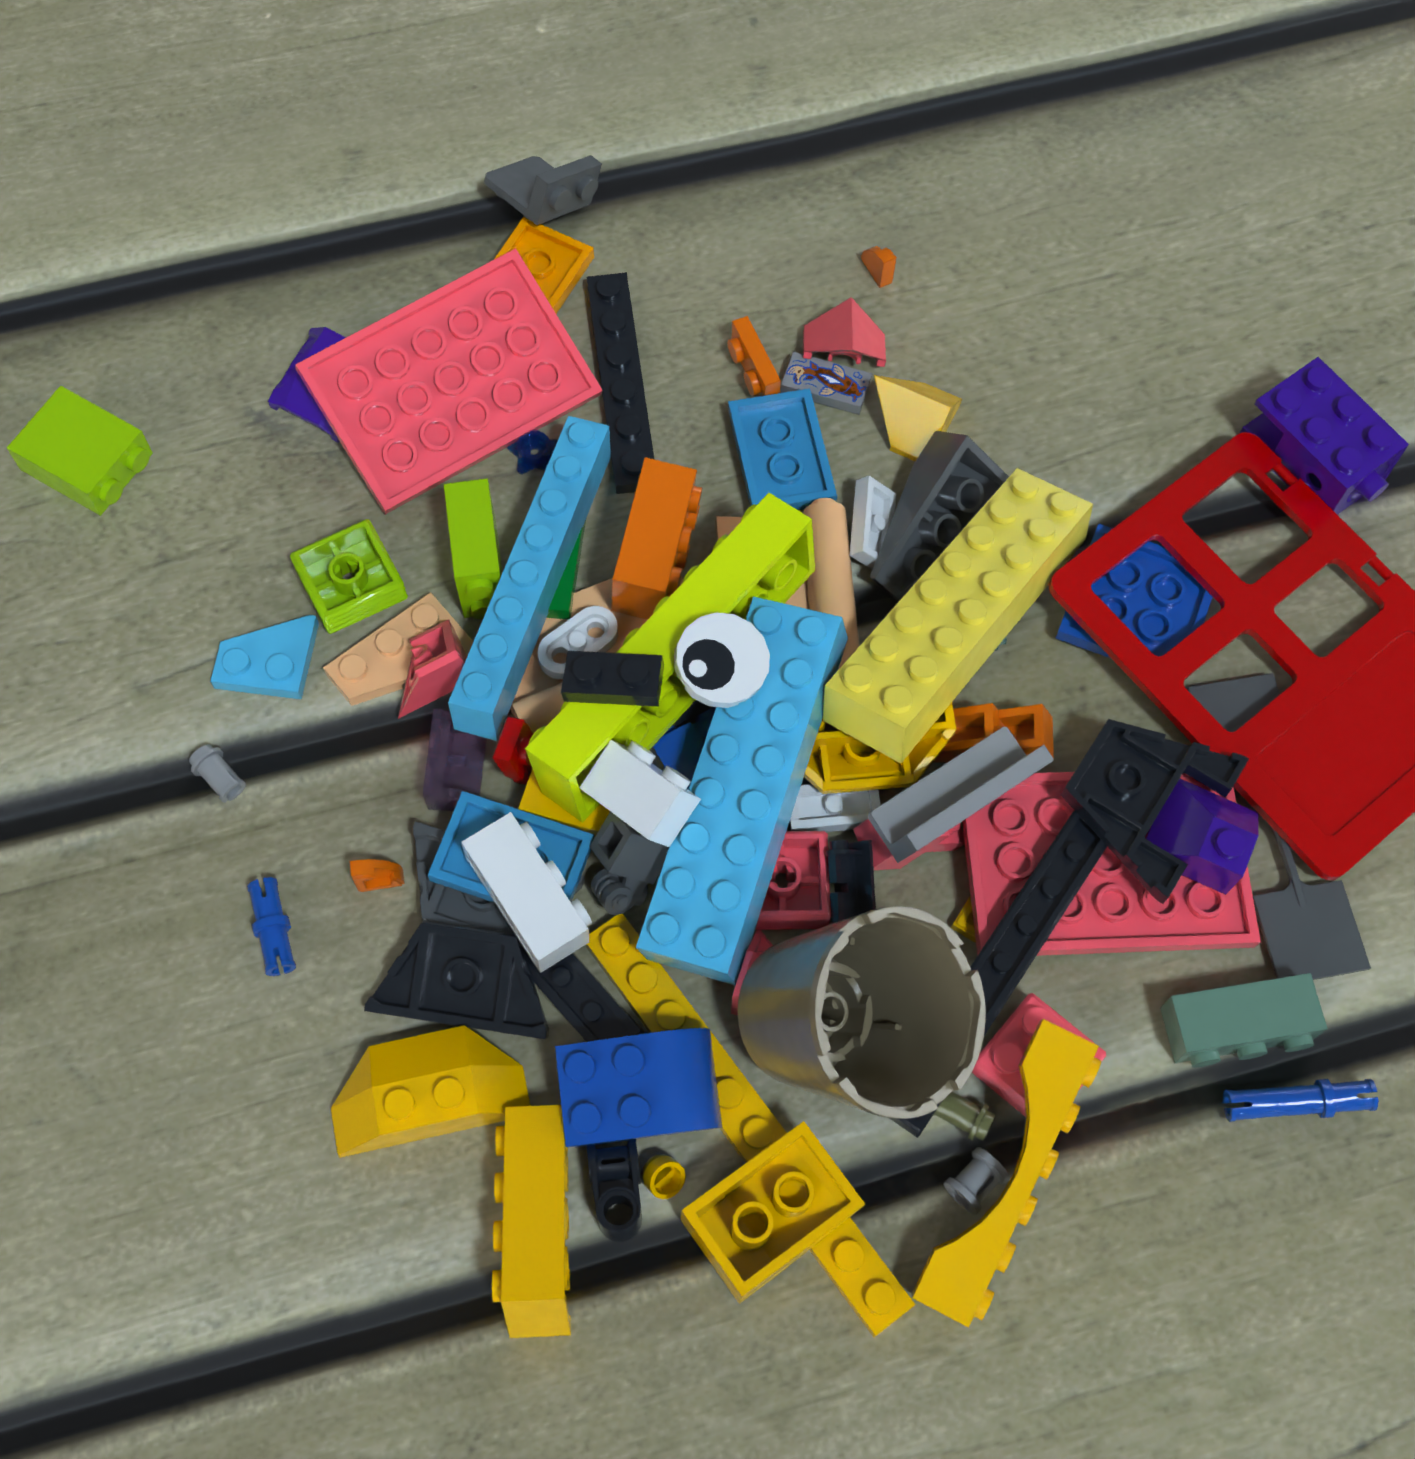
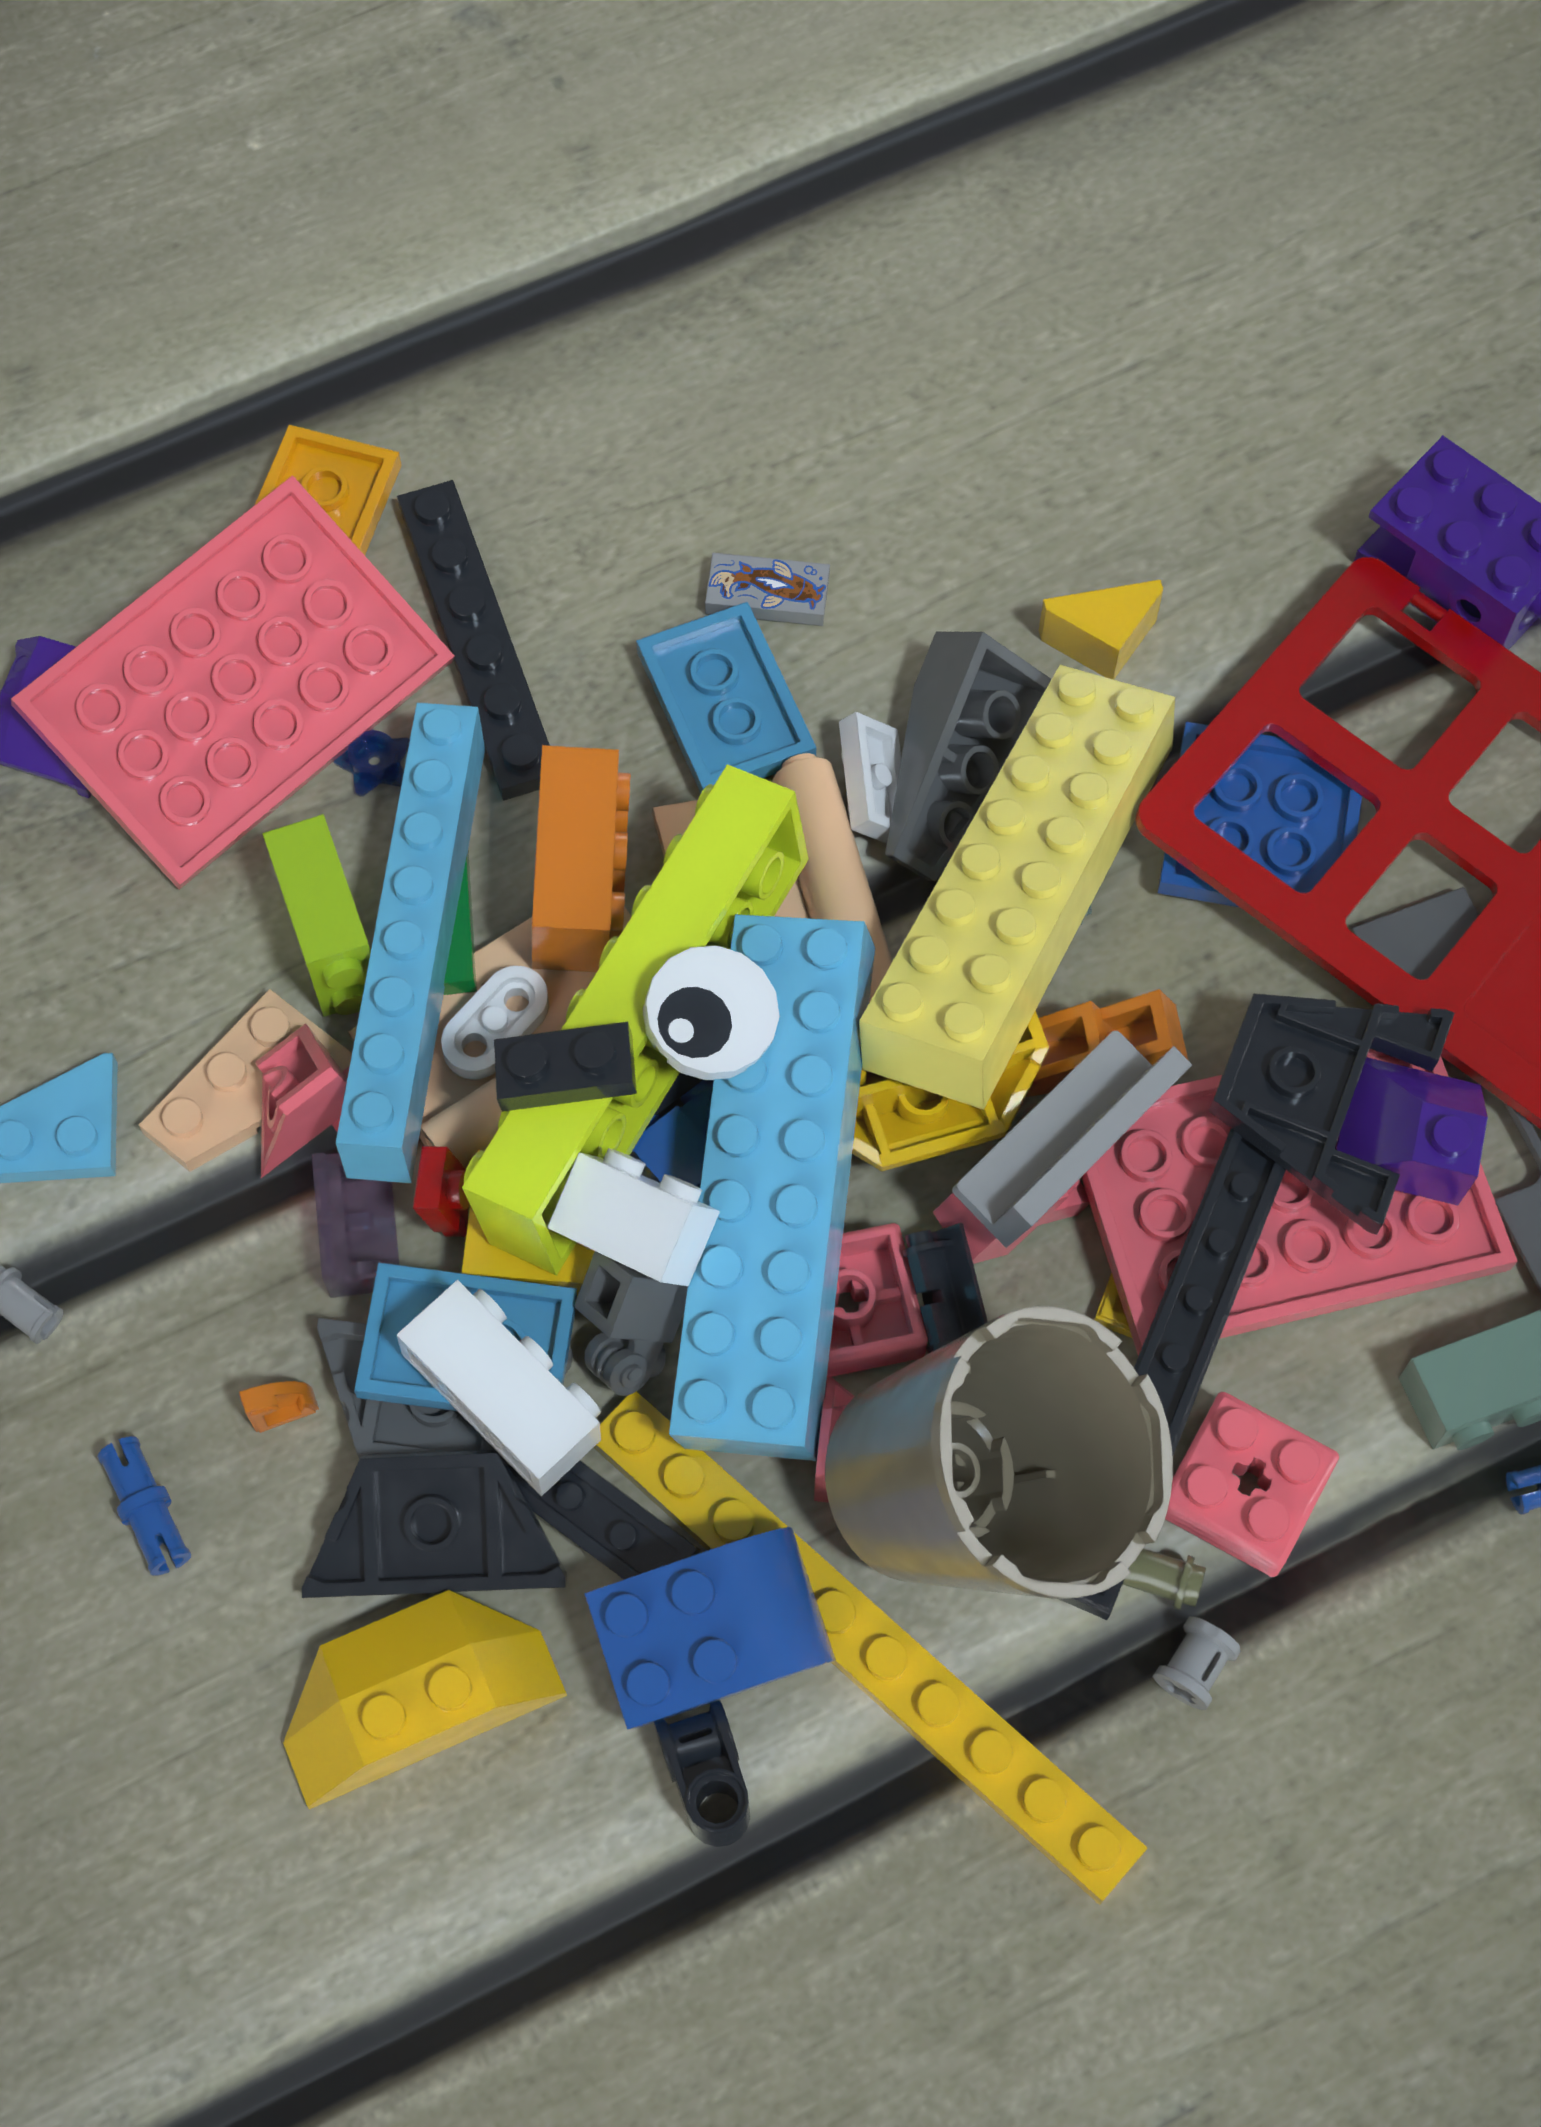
camera: 10 degrees left, 0 degrees up
(354, 551) = (154, 951): lime brick -> none
(533, 1222) = (604, 1840): yellow wedge -> none
(545, 191) = (309, 382): dark grey bracket -> none
(663, 1176) = (768, 1743): yellow hinge -> none
(748, 350) = (648, 560): orange plate -> none
(771, 1211) = (926, 1761): yellow slope -> none
(831, 811) = (900, 1192): white plate -> none
(845, 332) = (781, 512): coral slope -> none
(880, 264) = (810, 406): orange tile -> none
(913, 413) = (900, 611): yellow slope -> none
(962, 1267) = (1202, 1784): yellow arch -> none
(1052, 447) = (1101, 625): none -> yellow slope

